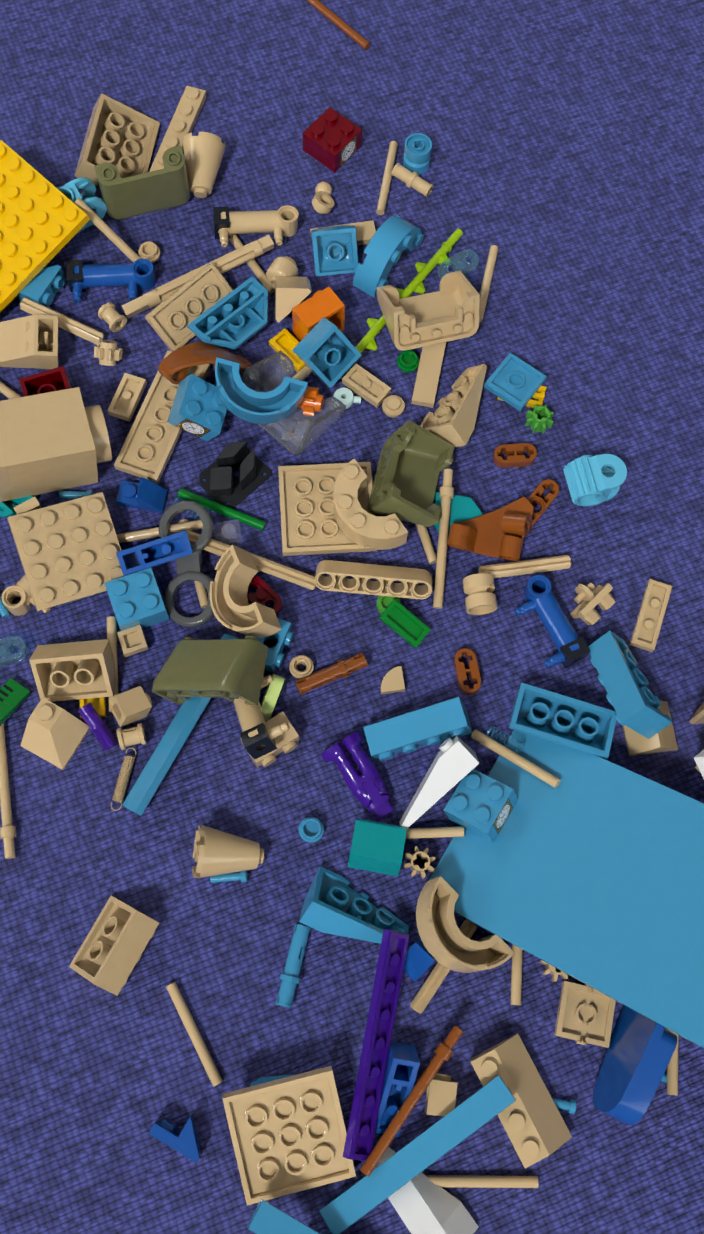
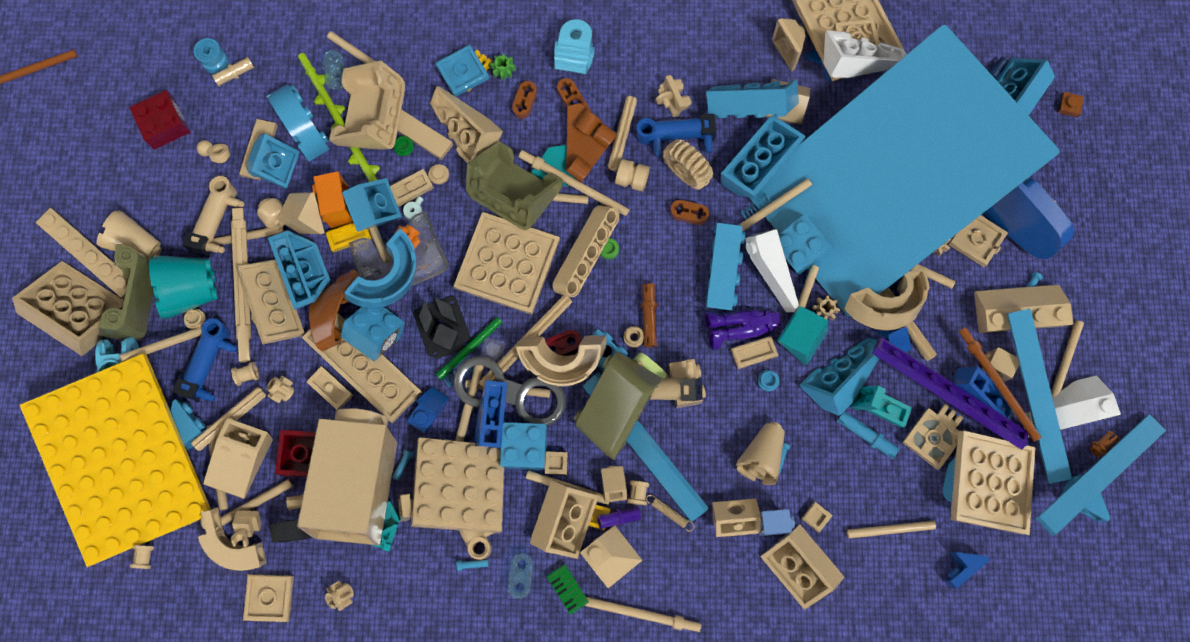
camera: 60 degrees left, 5 degrees up
(140, 849) = (736, 517): none -> tan brick
(148, 892) = (776, 522): none -> medium blue brick
(173, 221) = (181, 284): none -> teal cone
(177, 941) = (816, 517): none -> tan tile
(320, 1044) = (934, 436): none -> tan piece
(331, 970) = (876, 402): none -> teal bracket
(337, 802) = (754, 352): none -> tan tile
(354, 521) = (531, 243): tan brick -> none
(387, 178) = (219, 91): tan bar -> none
(393, 681) = (674, 271): tan tile -> none
(404, 623) = (631, 242): green tile -> none
(517, 645) = (688, 164): none -> tan gear
(650, 615) = (699, 59): tan tile -> none

